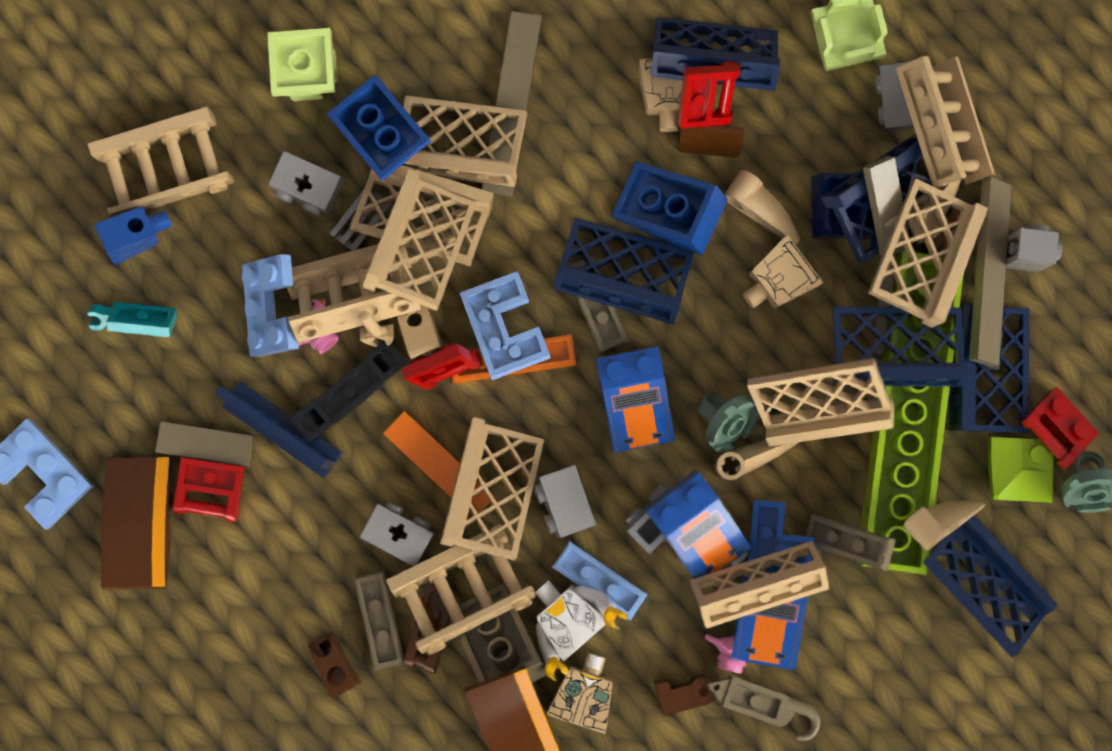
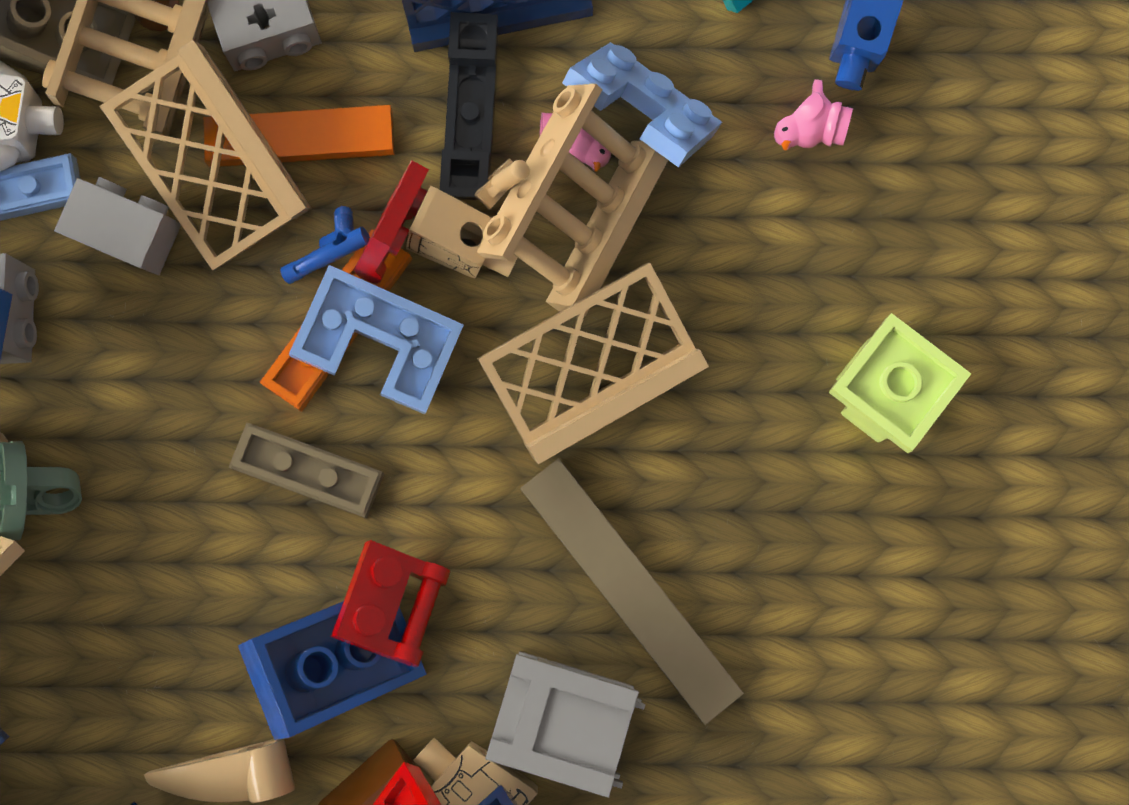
camera: 130 degrees right, 5 degrees down
(168, 132) = (946, 169): tan fence -> none
(201, 217) = (814, 122): none -> bright pink animal
(293, 171) = (732, 287): light grey brick -> none
(349, 215) = (648, 256): light grey tile -> none
(378, 127) = (735, 398): blue slope -> none
(395, 229) = (591, 297): tan fence -> none
(461, 166) = (615, 451): tan fence -> none
(479, 393) = (332, 247): none -> blue hose
(598, 75) = (563, 724): none -> light grey container
(611, 290) = (278, 508): dark blue fence -> none
(622, 211) = (376, 597): none -> red plate
(635, 399) = (158, 415): blue slope -> none
(781, 276) = (122, 718): tan torso -> none

